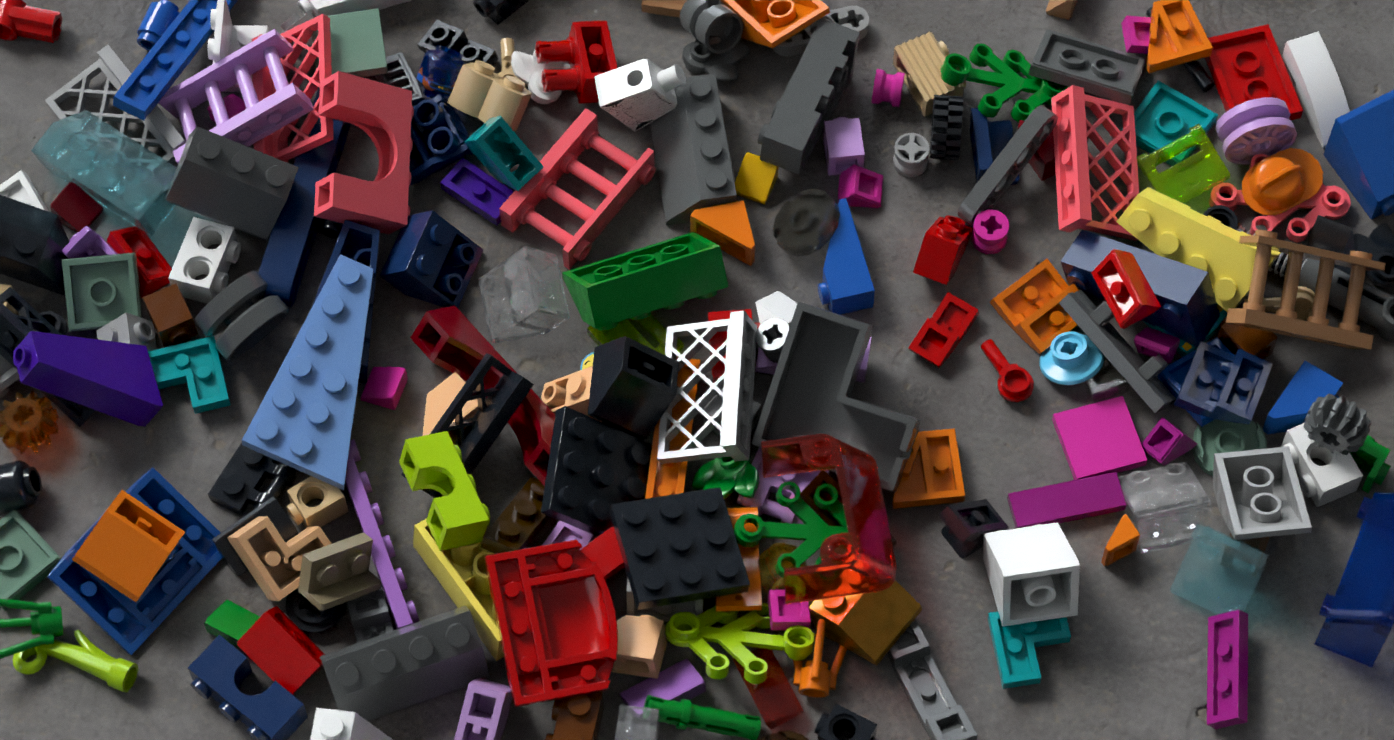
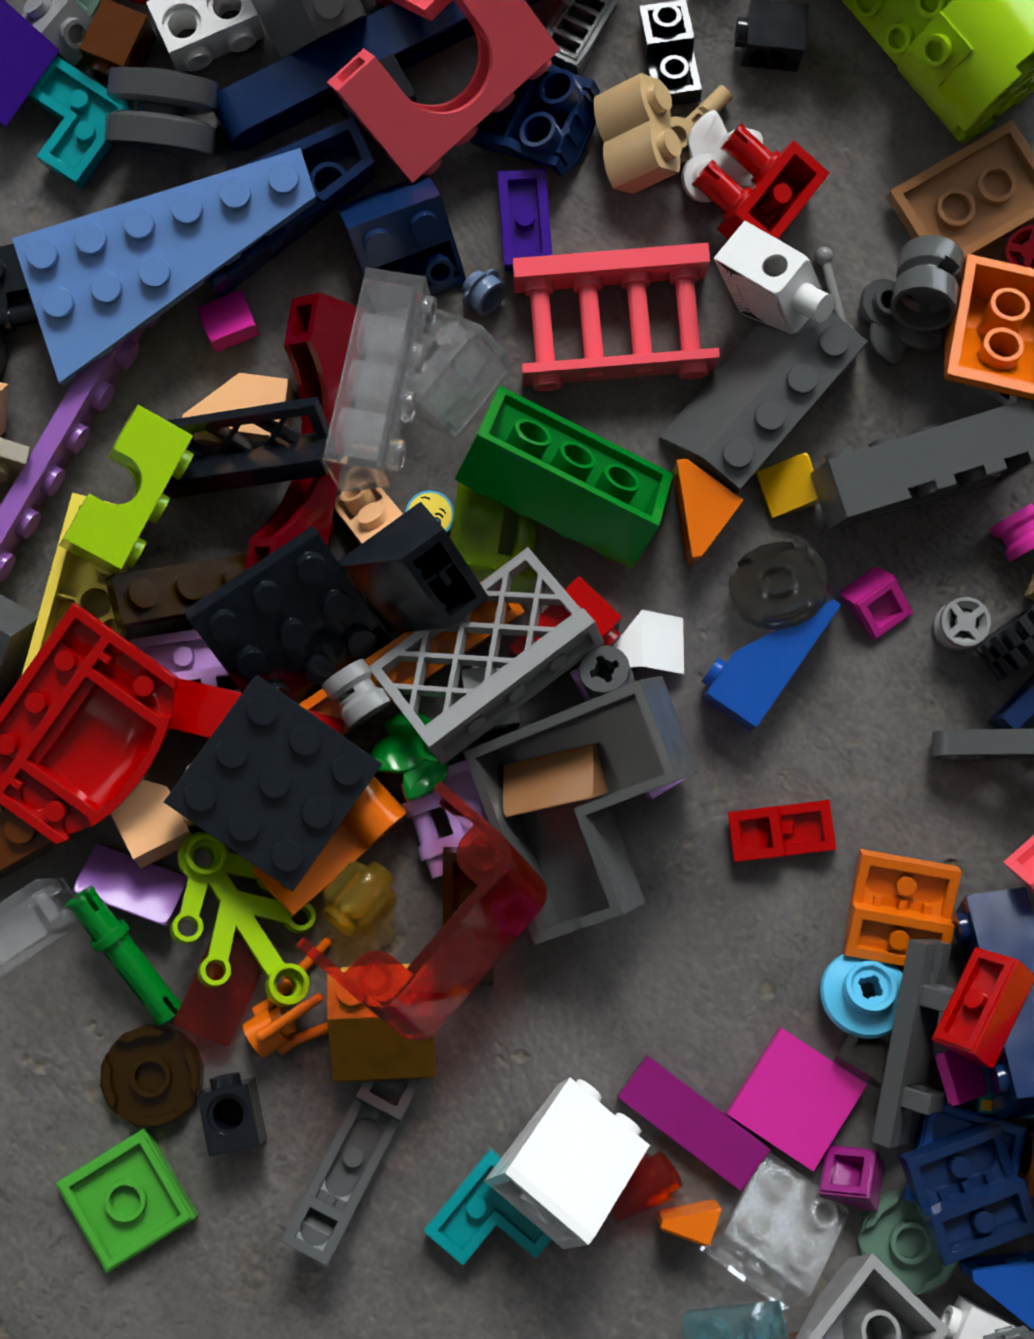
camera: 45 degrees right, 20 degrees up
(312, 488) = (16, 362): tan brick -> none
(439, 71) = (622, 55): clear blue head -> none
(499, 243) = (483, 291): none -> sand blue plate
(502, 149) = (575, 199): teal torso -> none
(508, 318) = (378, 380): none -> clear slope
(675, 475) = (356, 693): none -> light grey wheel
(786, 615) = (321, 933): dark pink plate -> none
(810, 407) = (552, 780): none -> medium nougat slope
(813, 530) = (413, 905): green plant -> none
(843, 144) = (909, 543): lavender brick -> none
(931, 472) = (605, 956): orange wing -> none
(942, 249) = (875, 753): red slope -> none
(968, 523) = (578, 1050): black slope -> none
(988, 240) = (932, 788): dark pink wheel -> none
(1014, 382) = (784, 955): red plate -> none
(1085, 545) = (649, 1186): none -> clear red cone

